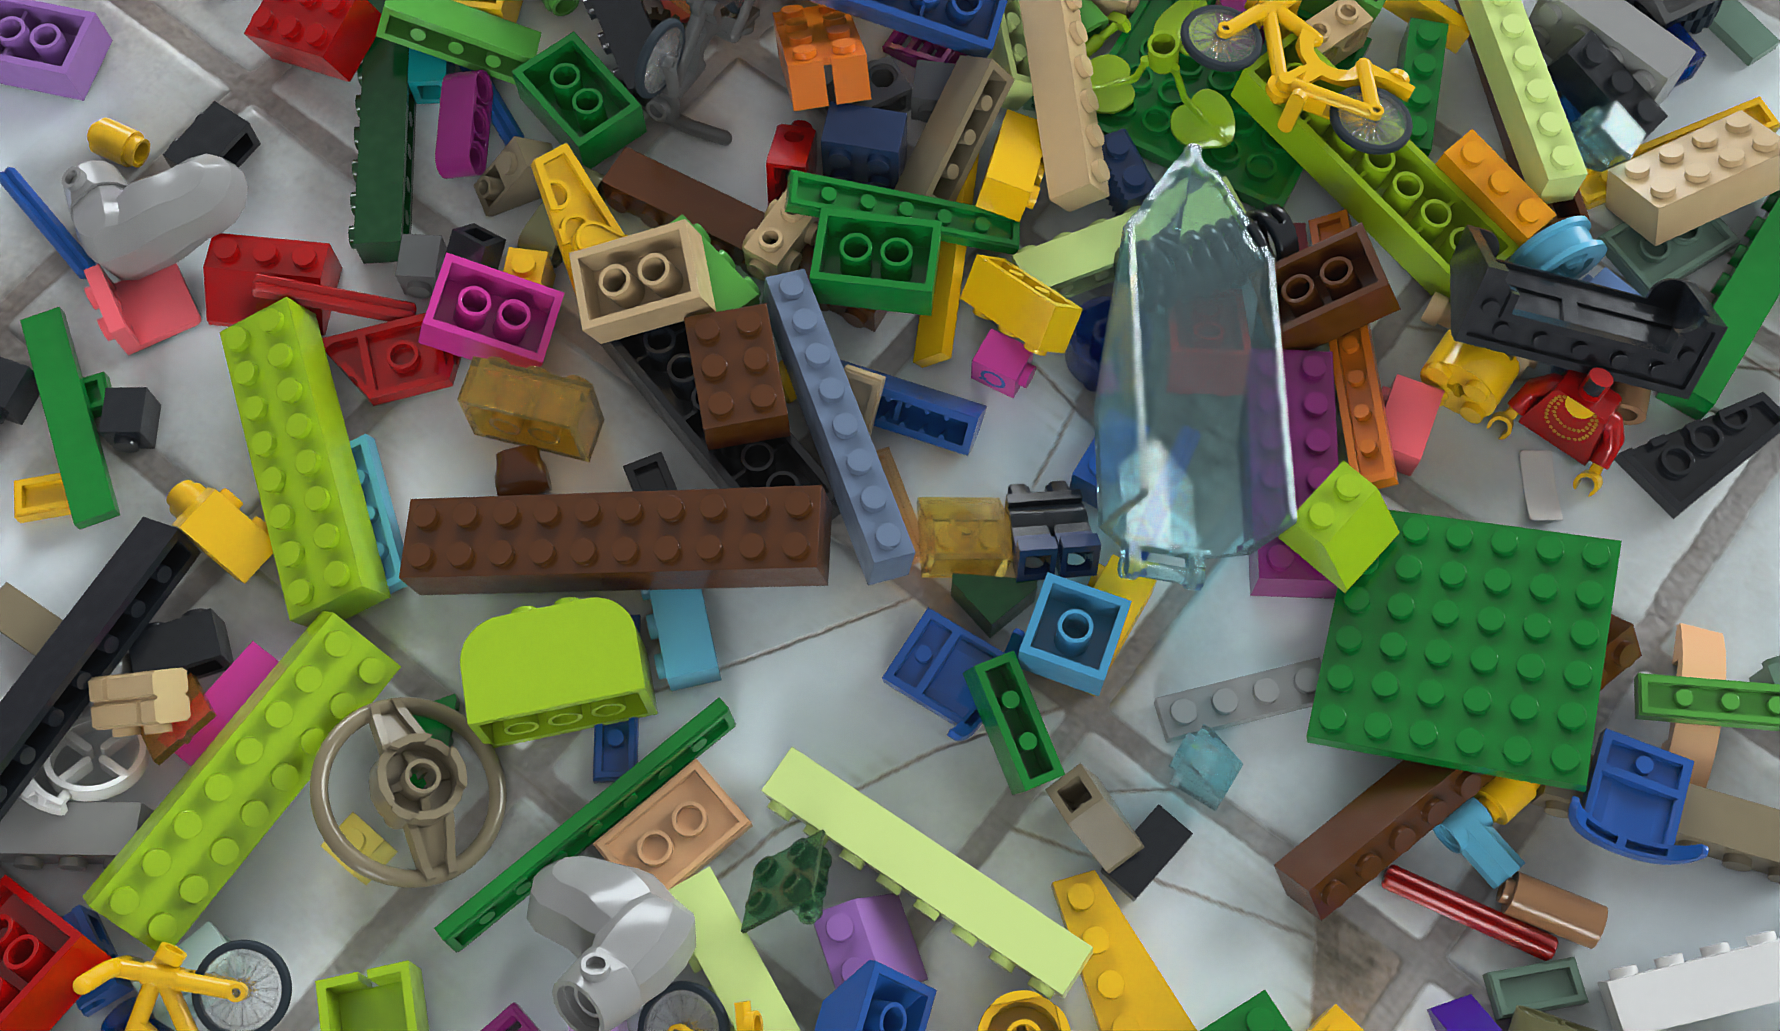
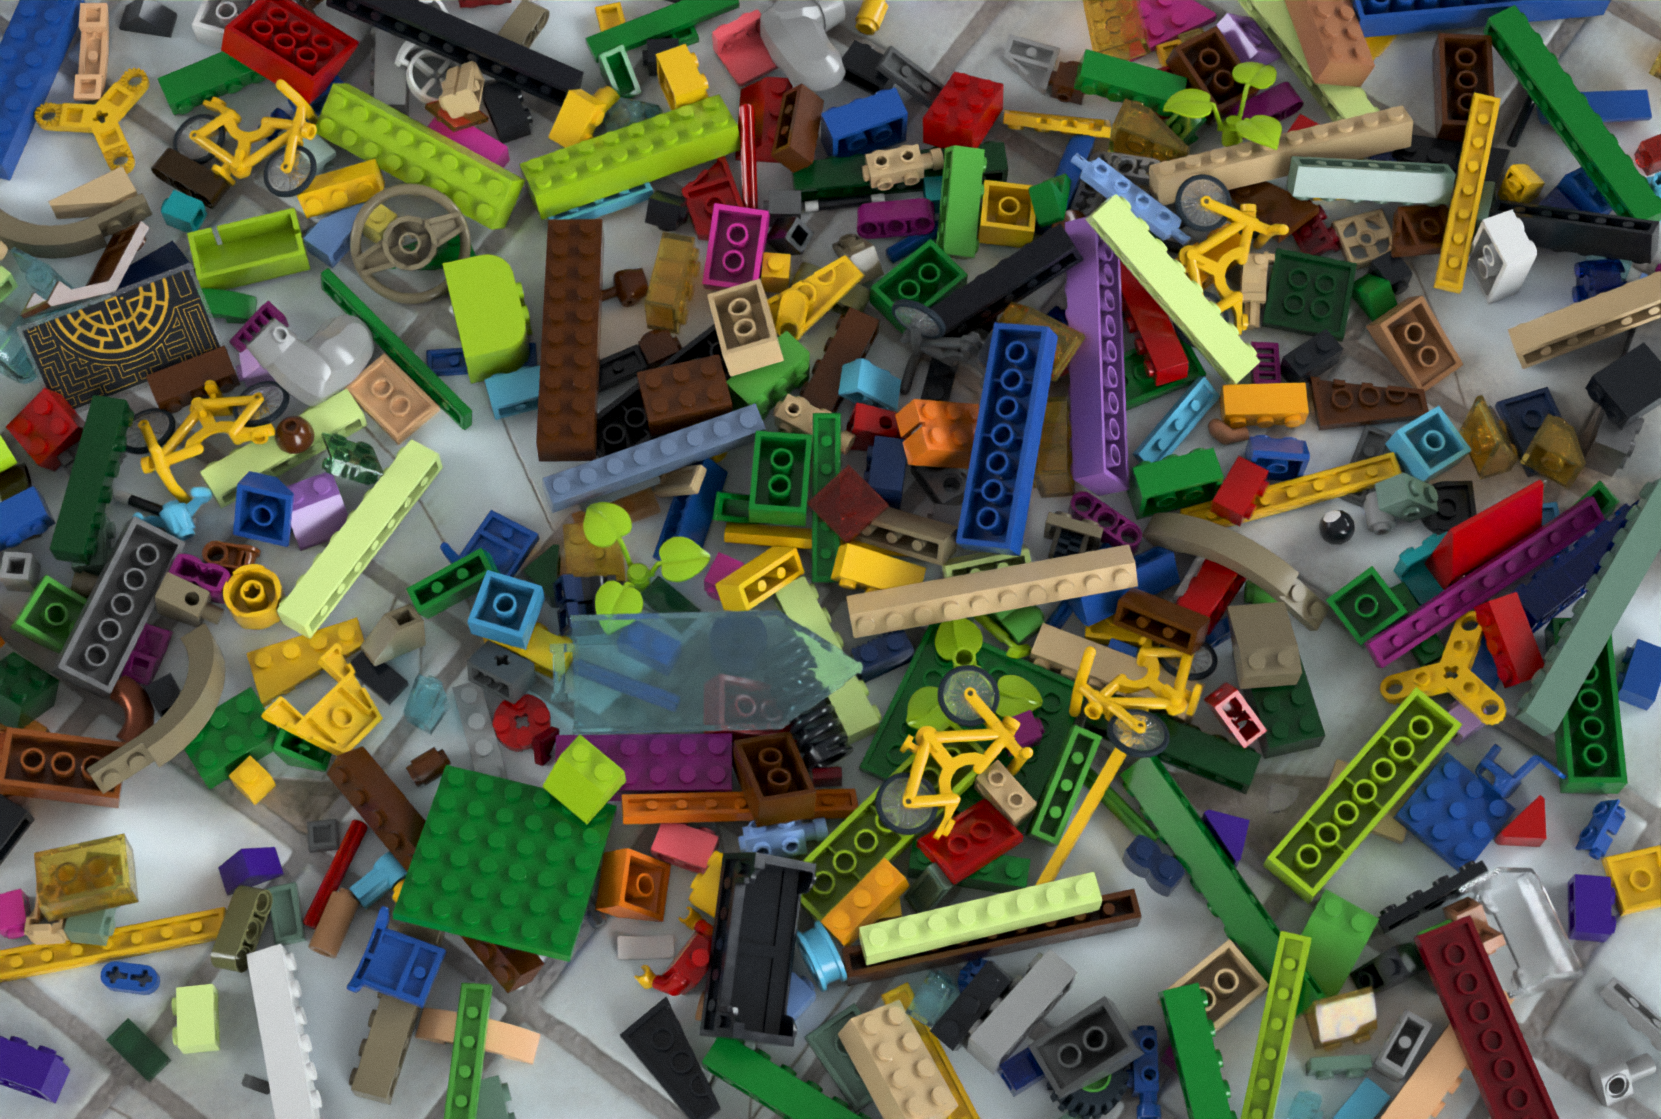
camera: 85 degrees right, 0 degrees up
(144, 481) = (618, 72): none -> green slope
(185, 384) = (680, 77): none -> yellow brick
(229, 461) = (629, 111): none -> clear light blue slope
(243, 89) = (909, 76): none -> dark grey tile
(287, 901) = (342, 188): none -> yellow brick
(305, 220) = (797, 128): none -> reddish brown brick
(308, 149) = (864, 125): none -> blue brick
(361, 918) = (331, 235): none -> medium blue slope
(390, 93) = (900, 165): none -> tan brick
(404, 417) = (666, 211): none -> black brick
(421, 189) = (839, 203): none -> black bar
(635, 433) = (658, 347): none -> reddish brown brick
(723, 99) = (939, 381): none -> black plate
(728, 162) = (869, 385): none -> medium azure brick
(743, 974) = (294, 435): none -> reddish brown brick
(896, 347) = (732, 507): none -> green slope
(927, 173) = (848, 504): none -> clear red plate
(947, 492) = (679, 559): none -> lime plant
(1036, 440) = (665, 598): none -> clear green tile
(1172, 649) = (501, 672): none -> dark grey brick
(1217, 617) = (505, 722): none -> red plate
(1228, 900) = (338, 718): none -> yellow wing
(1258, 605) = (543, 745): none -> dark red tile
(1280, 956) = (299, 752): none -> green slope
(1296, 771) = (428, 766): none -> reddish brown brick
(1392, 48) = (973, 842): none -> red tile
(1405, 326) = (782, 839): none -> light blue brick
(1406, 933) = (323, 835): none -> dark grey tile
(1454, 120) = (928, 889): none -> sand green tile
(1465, 488) = (633, 885): none -> orange slope

